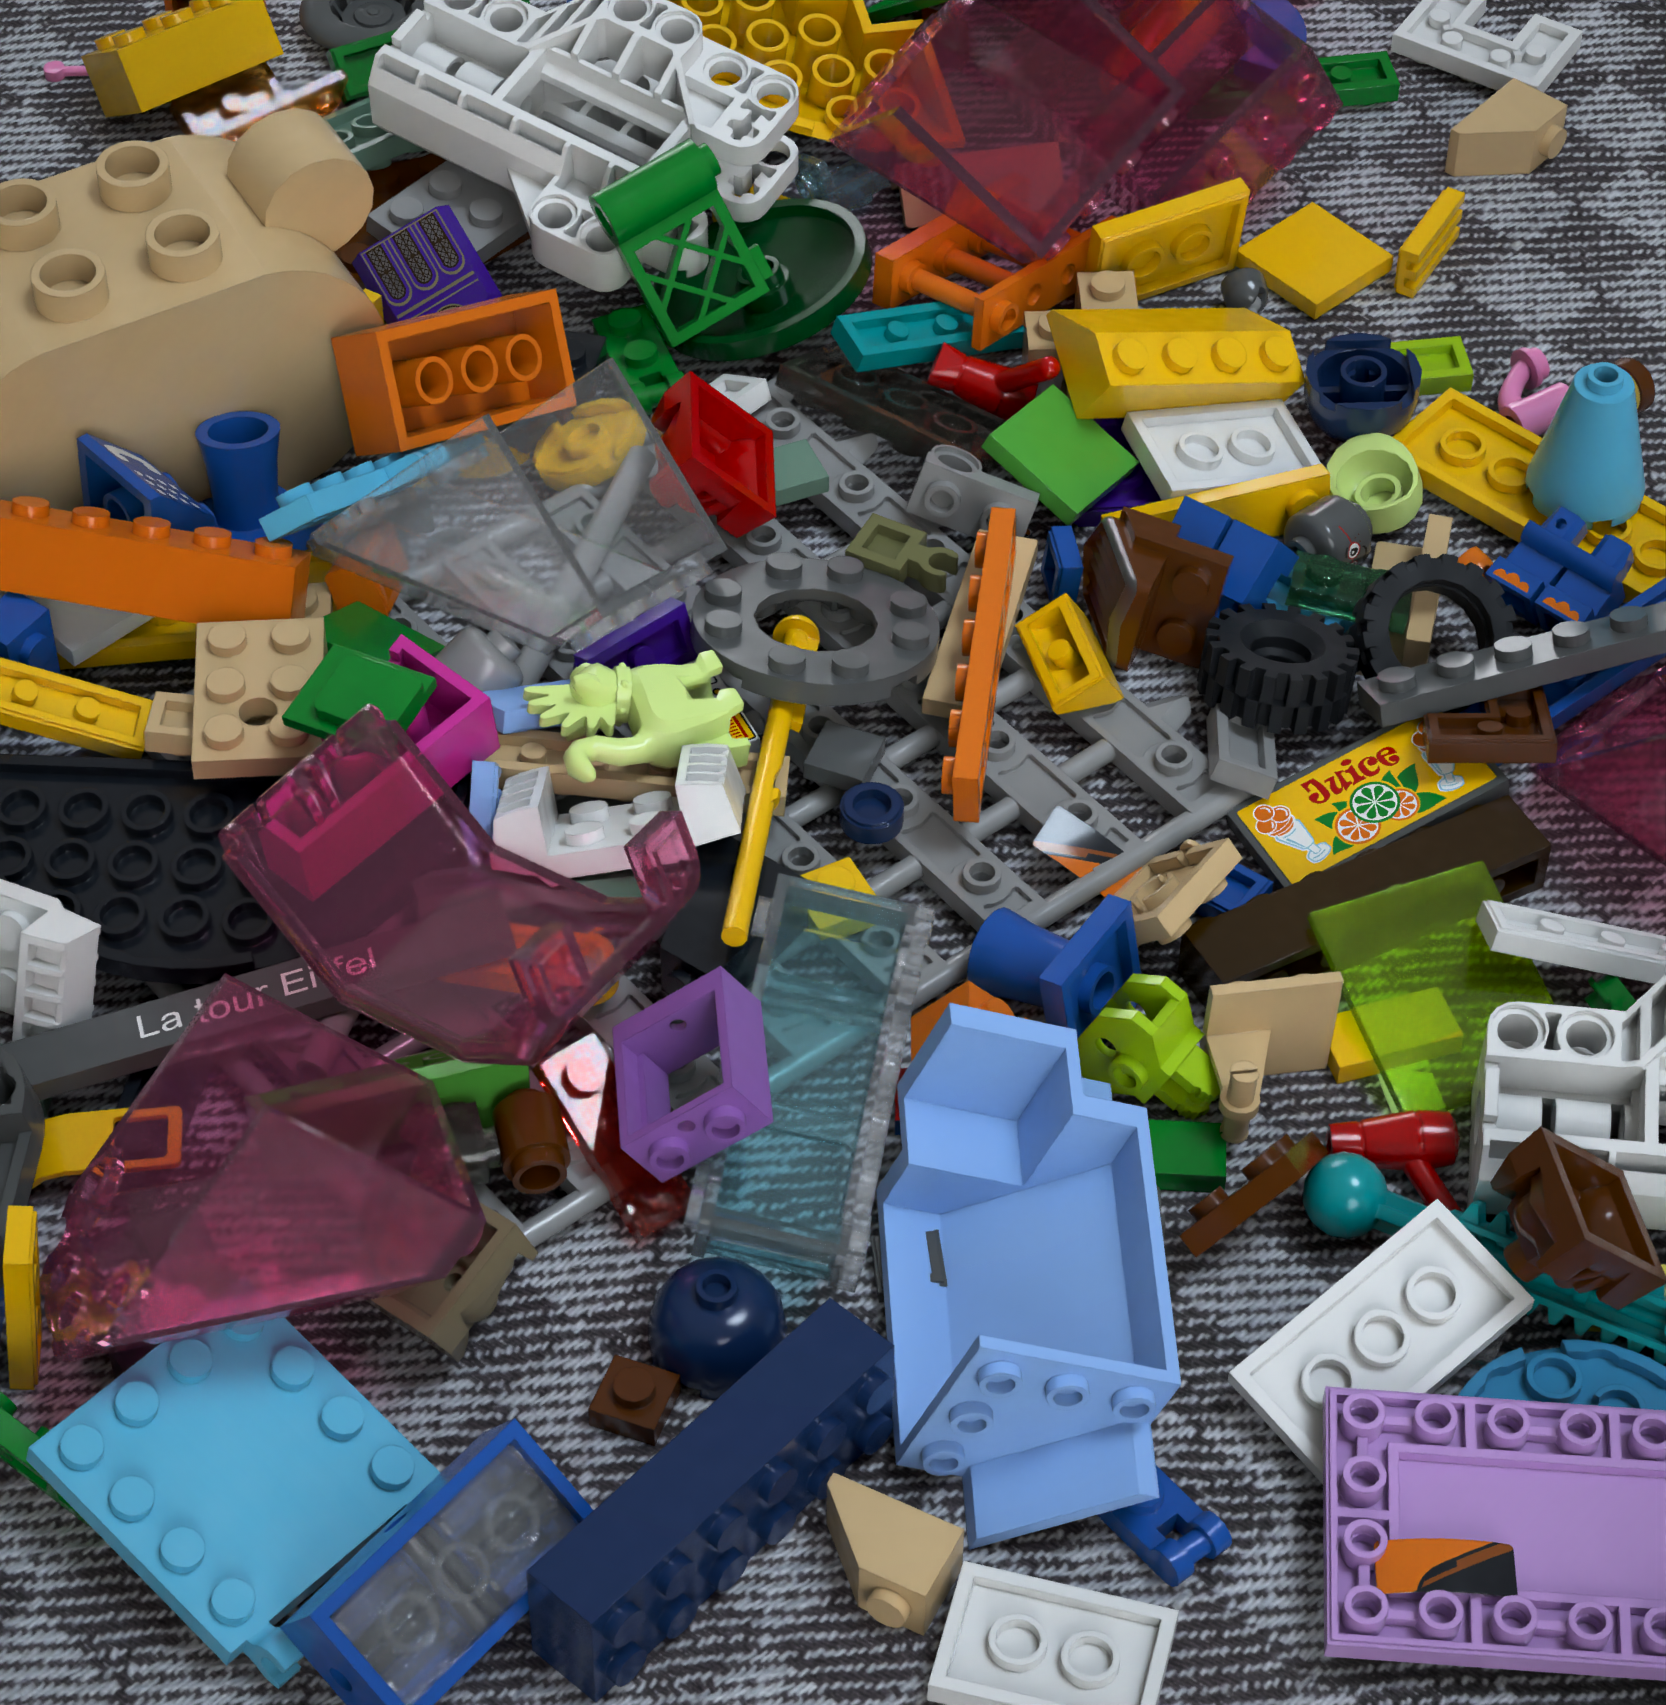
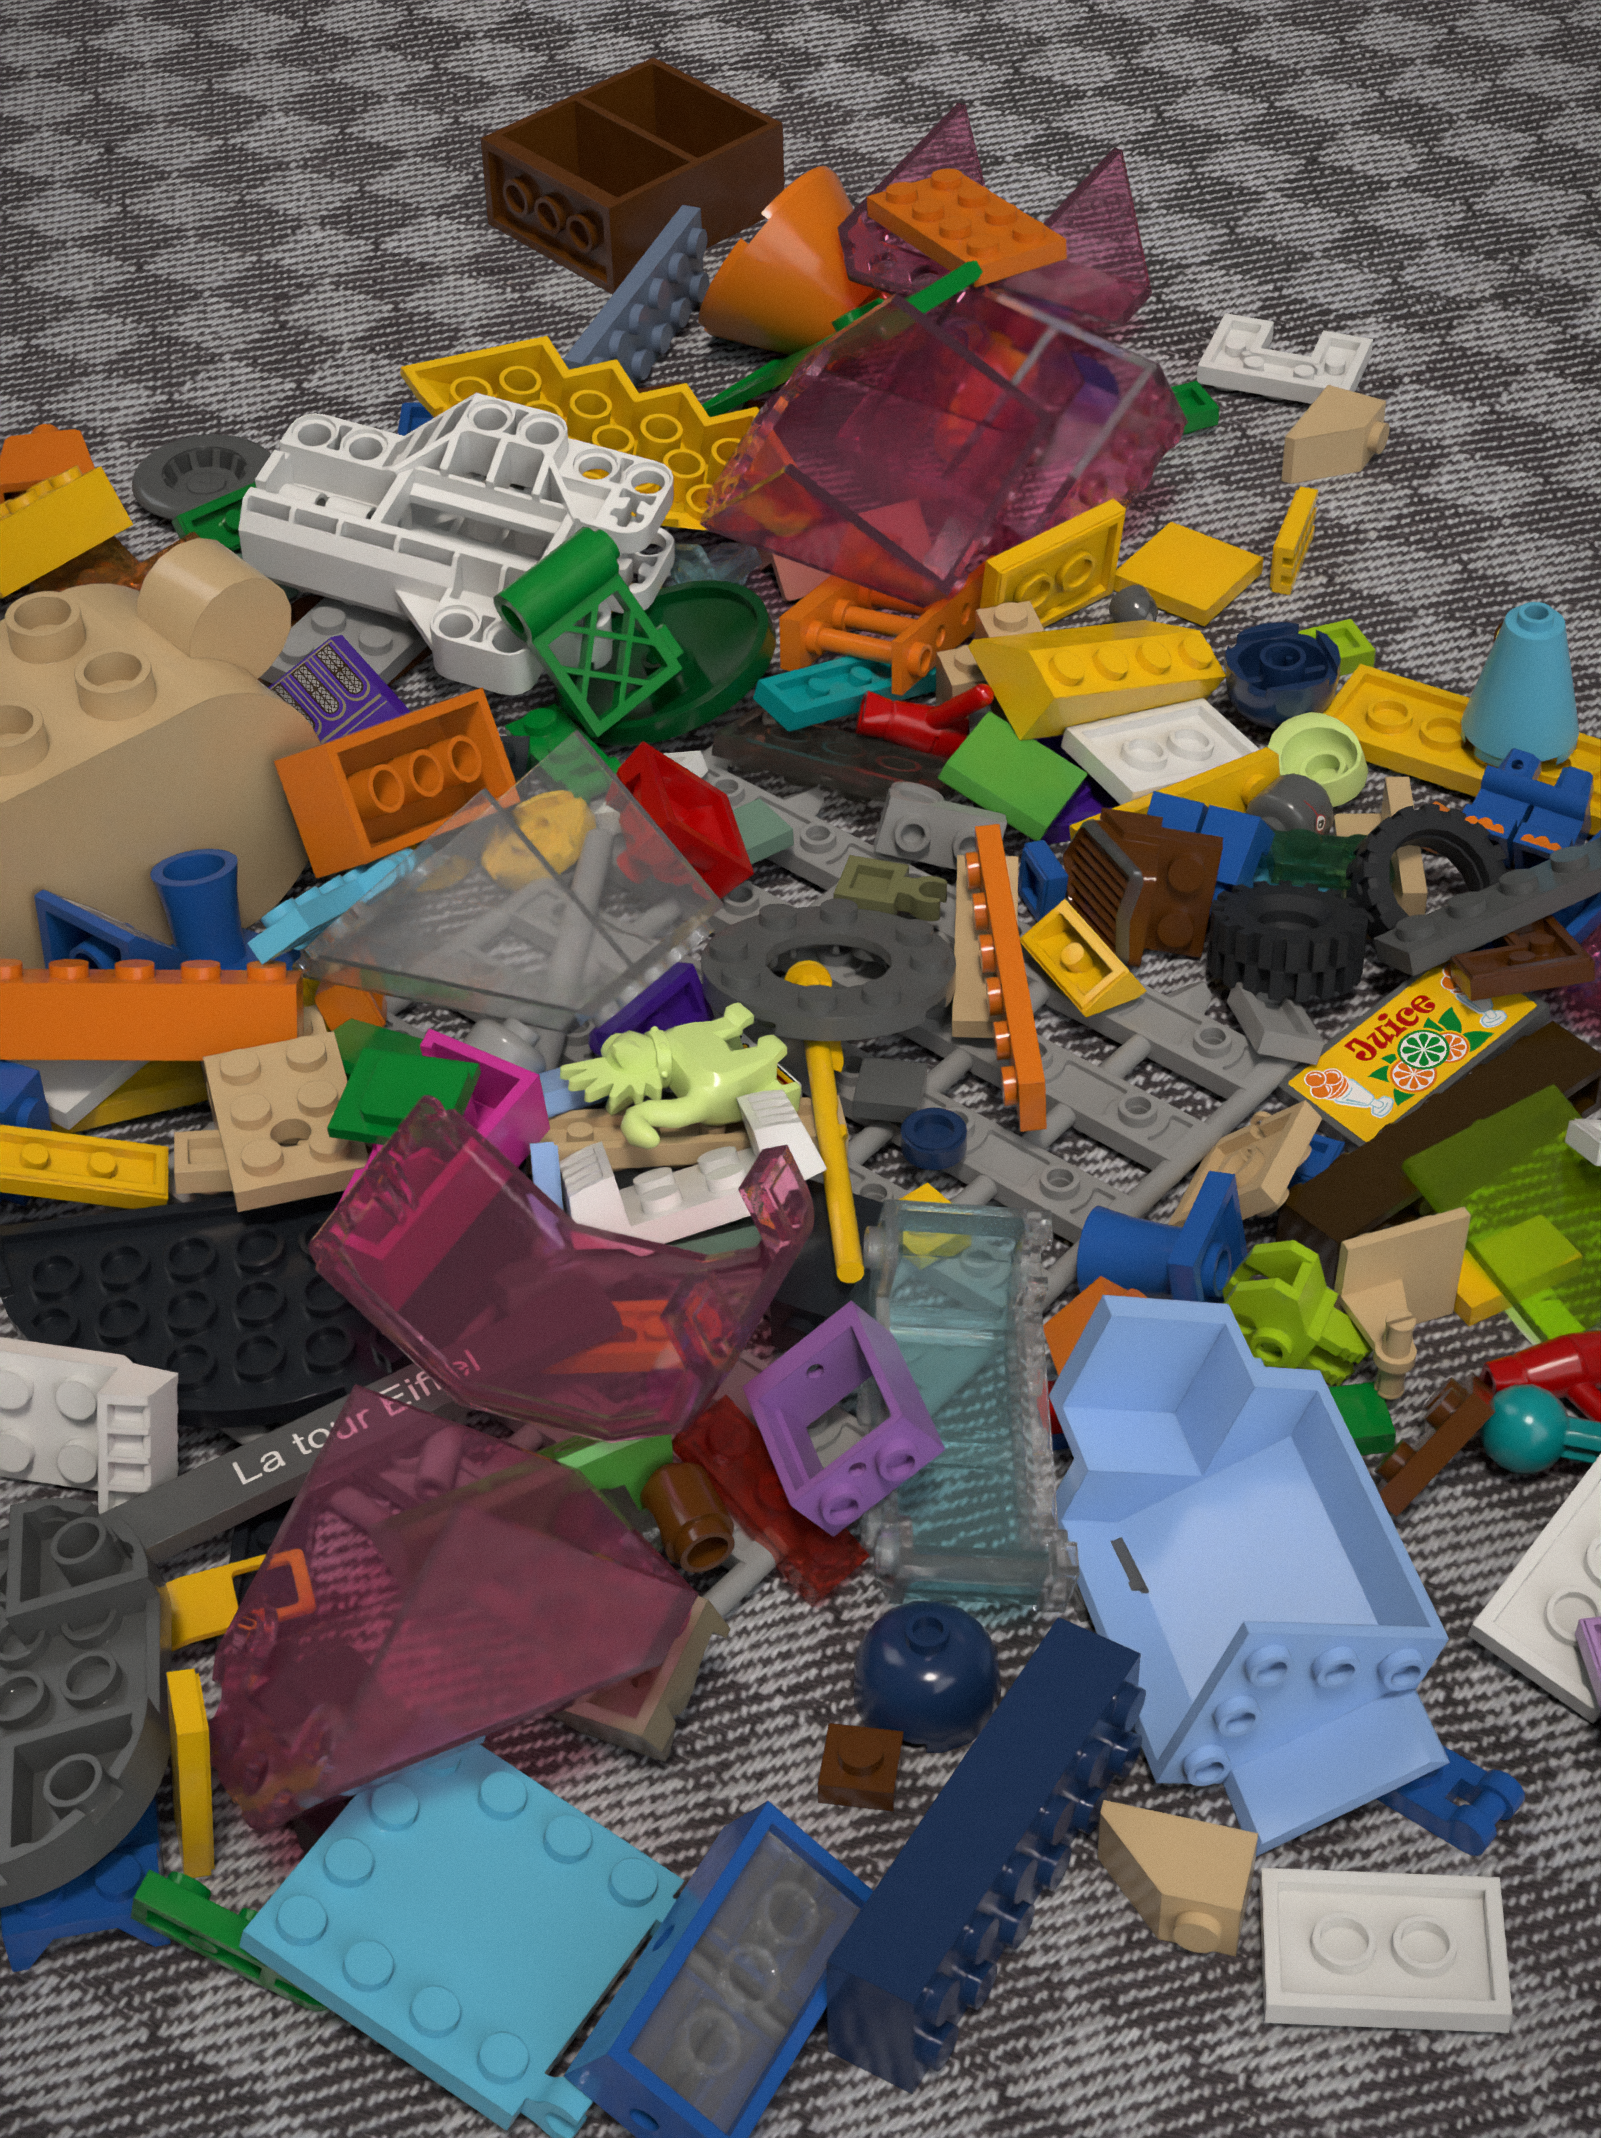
camera: 10 degrees left, 5 degrees down
(1077, 846) = (1146, 1138): sticker -> none
(1537, 410) = (1453, 670): bright pink plant -> none

